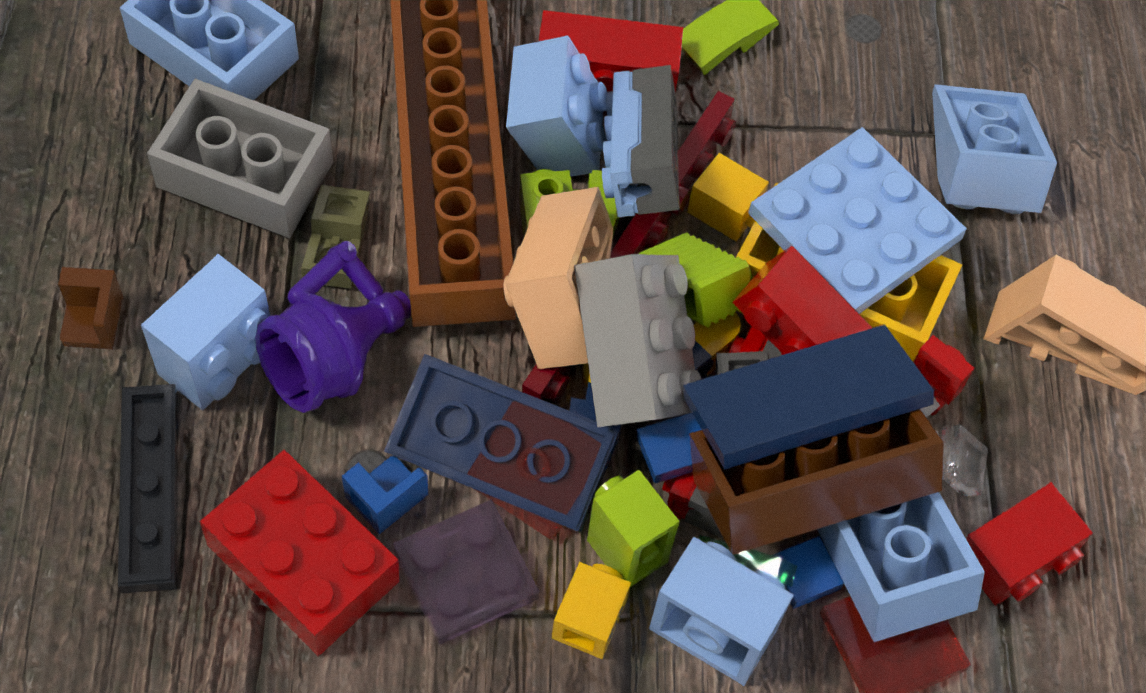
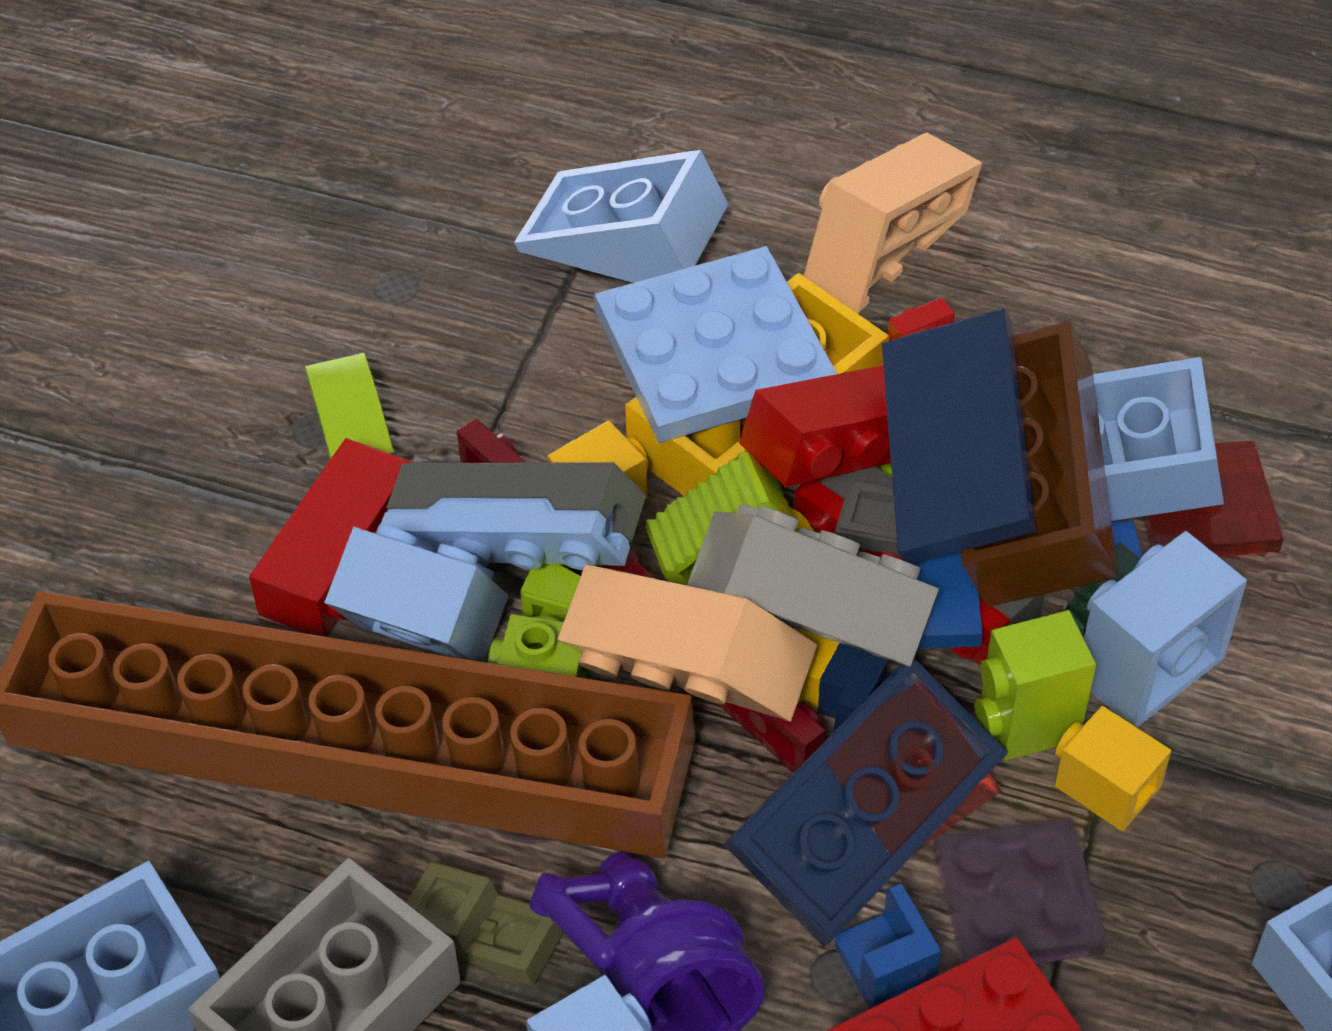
camera: 65 degrees left, 10 degrees down
(1027, 543) = (1125, 328): red brick -> none

